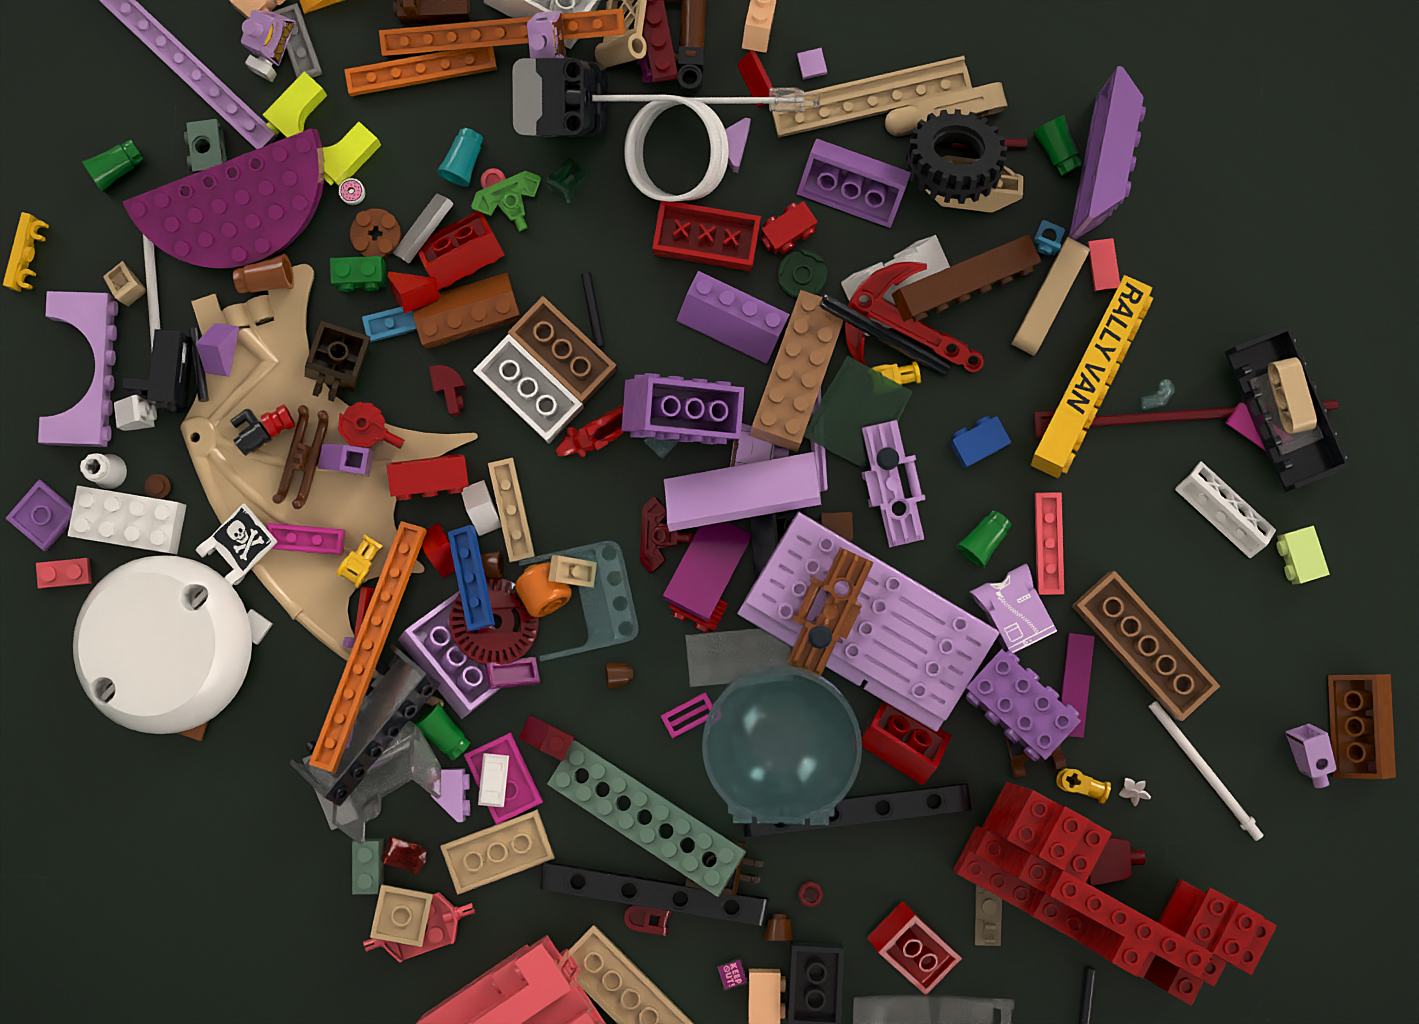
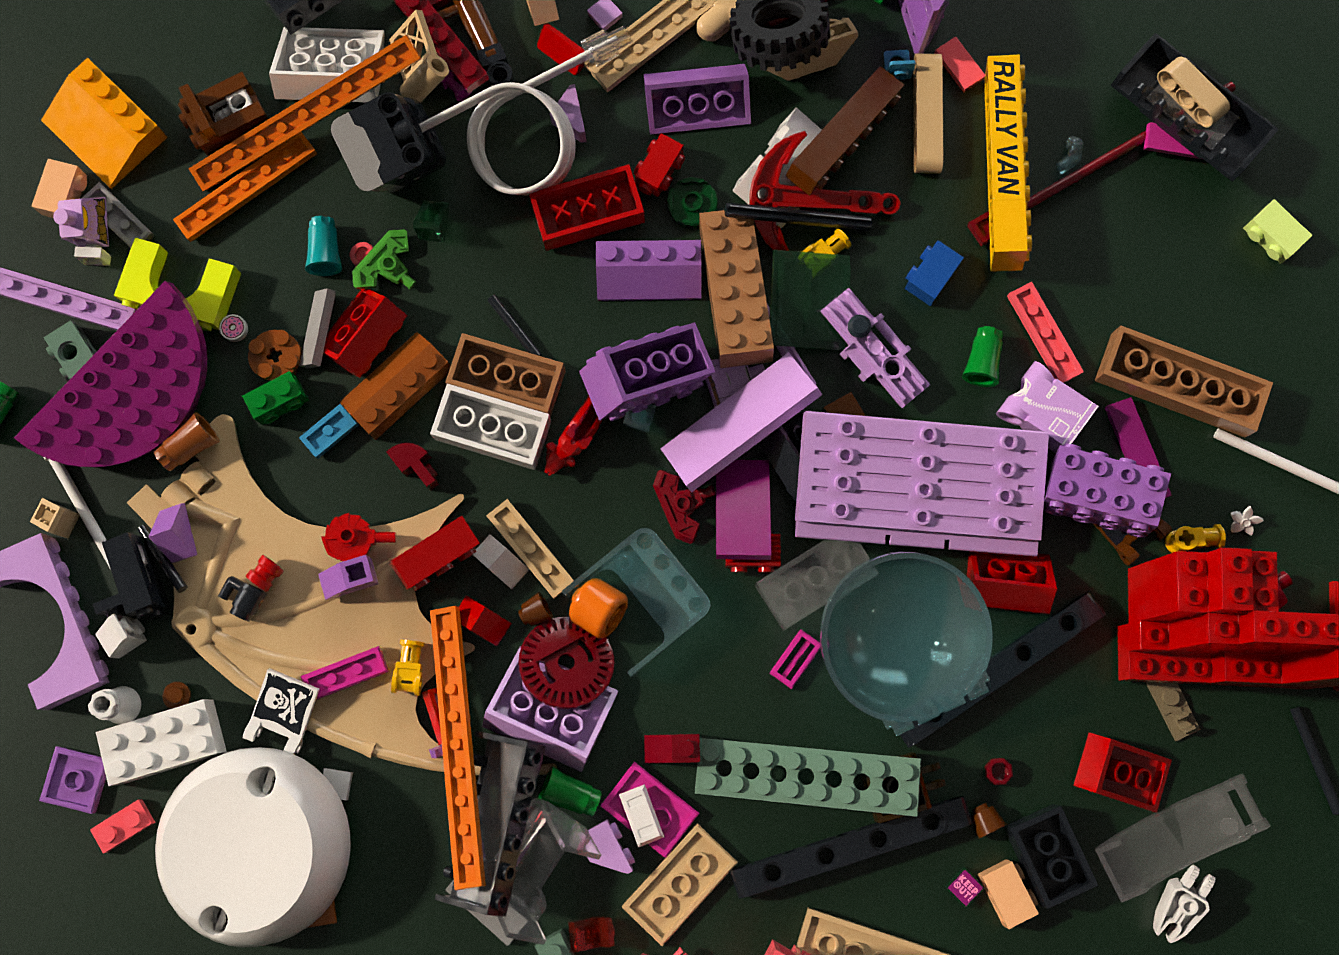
camera: 25 degrees left, 5 degrees down
(302, 457) = (305, 596): reddish brown piece -> none
(328, 369) = (293, 487): dark brown hinge -> none
(412, 290) = (335, 389): red slope -> none
(471, 578) = (524, 630): blue plate -> none
(513, 674) = (611, 702): magenta tile -> none
(546, 35) = (347, 90): lavender torso -> none
(572, 571) = (618, 575): tan plate -> none
(617, 674) = (709, 654): reddish brown hat -> none
(638, 919) = (848, 879): dark red plate -> none
(838, 613) = (893, 488): dark orange piece -> none
(1224, 512) = (1186, 226): white fence -> none

